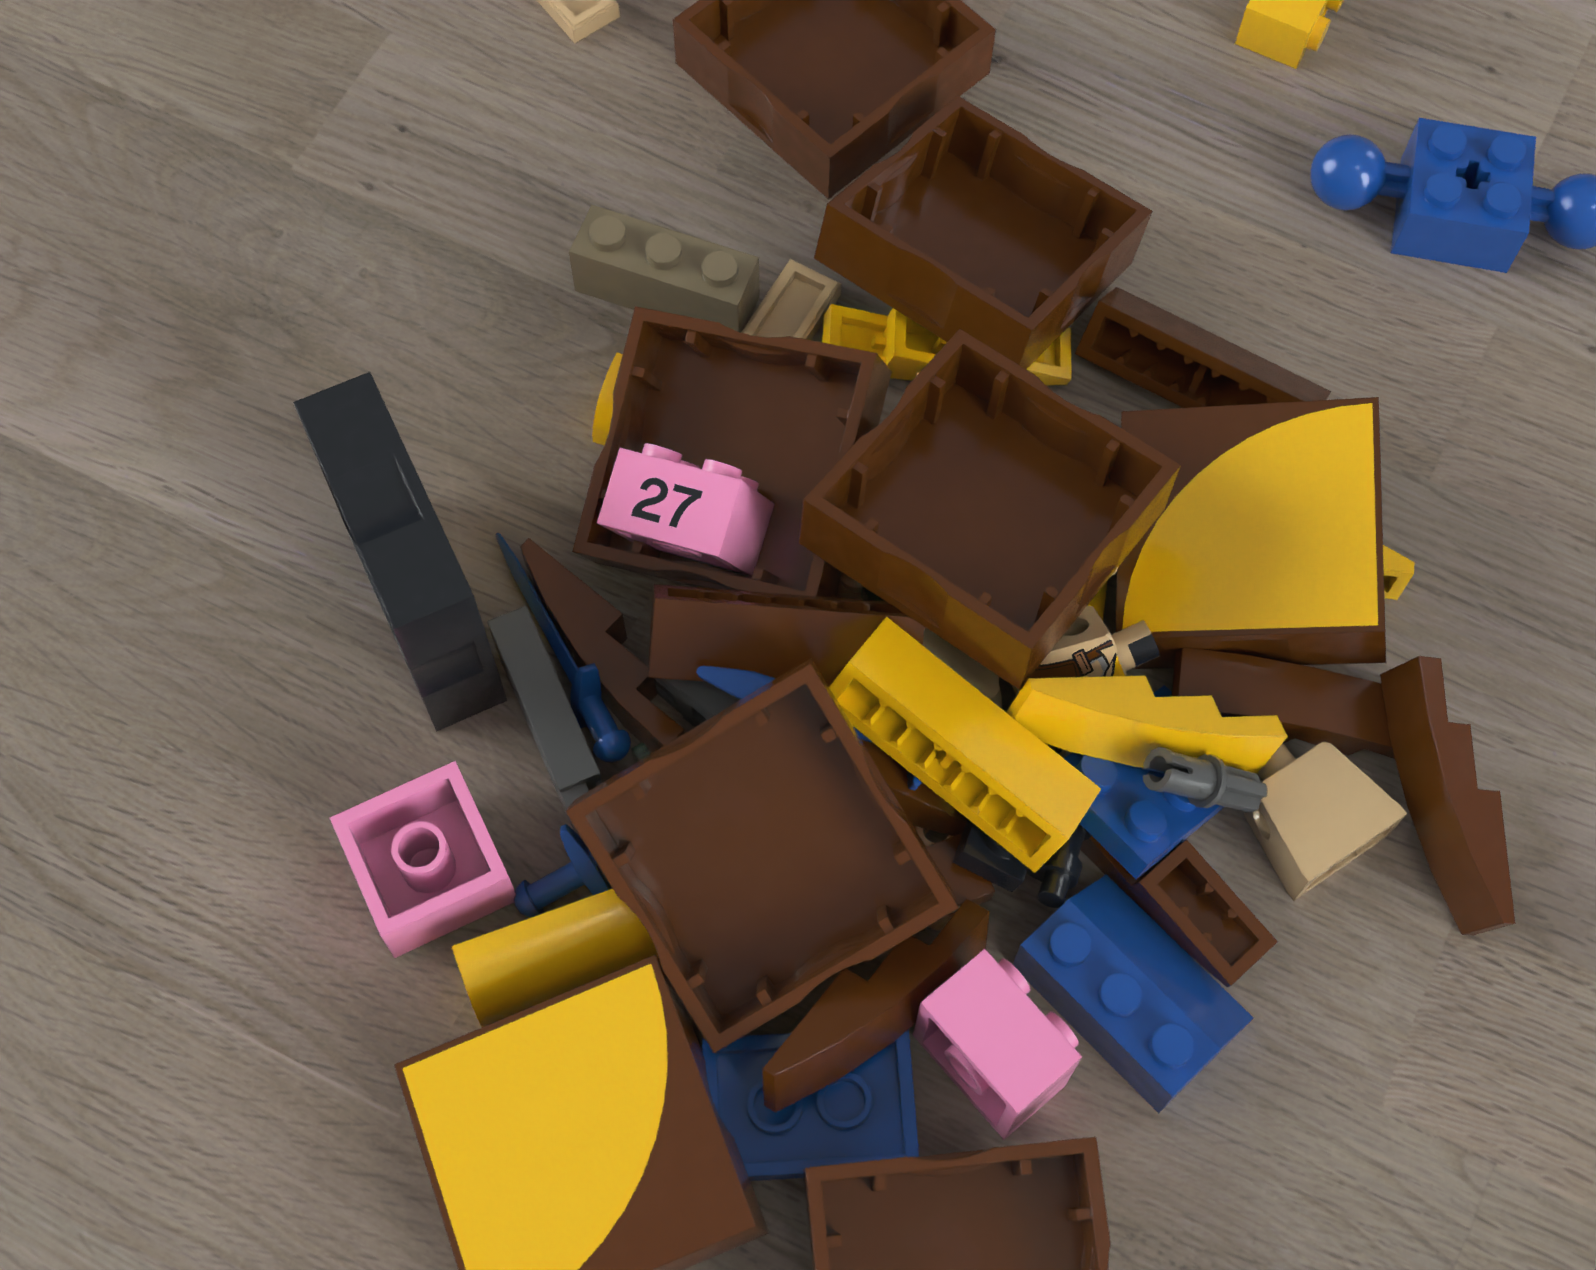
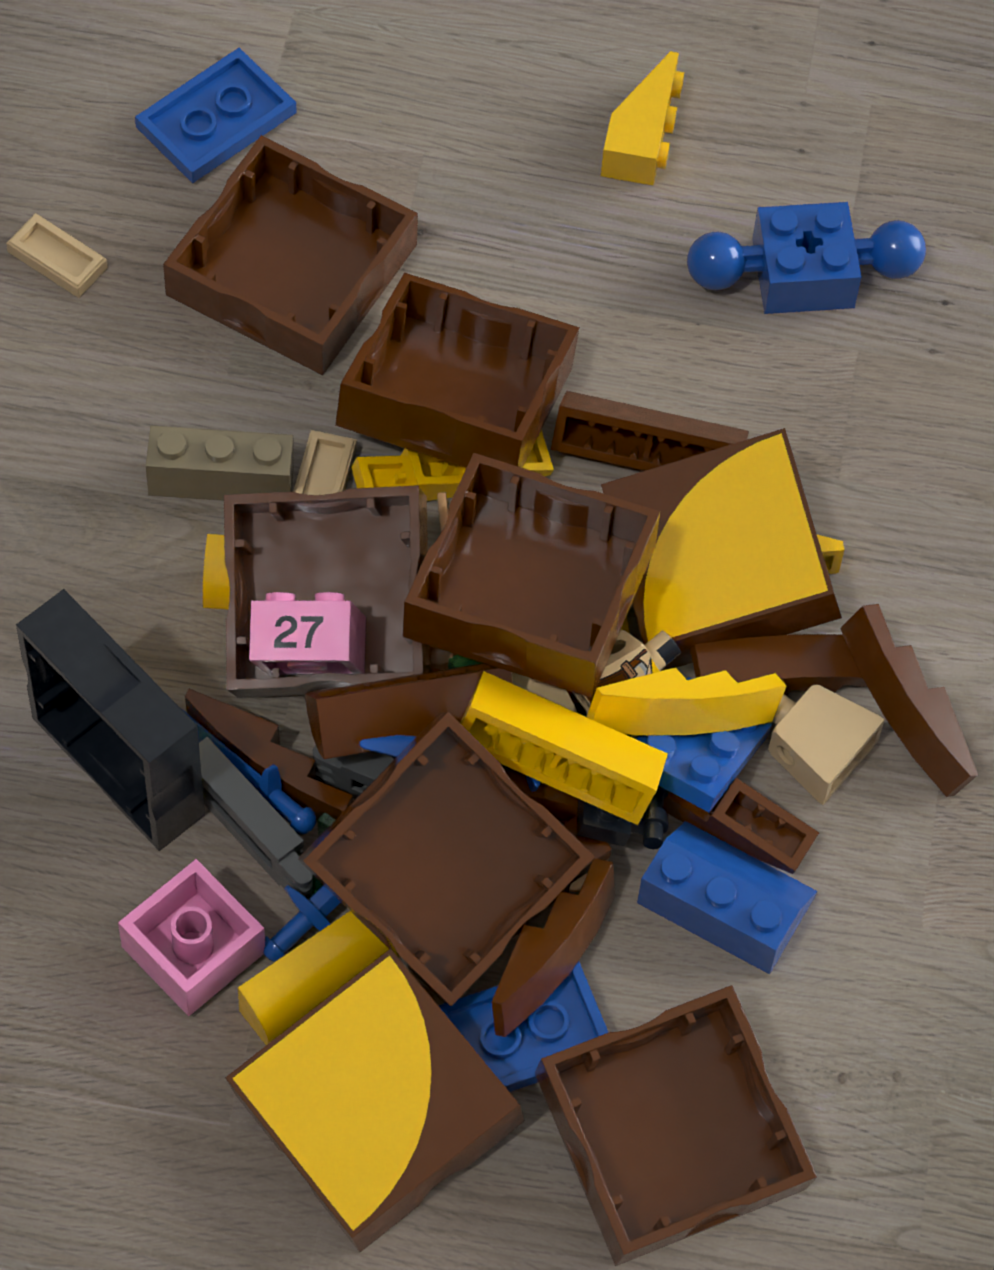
camera: 20 degrees left, 5 degrees down
(996, 1042) = (643, 949): bright pink brick -> none
(1204, 780) = (737, 731): dark grey axle -> none

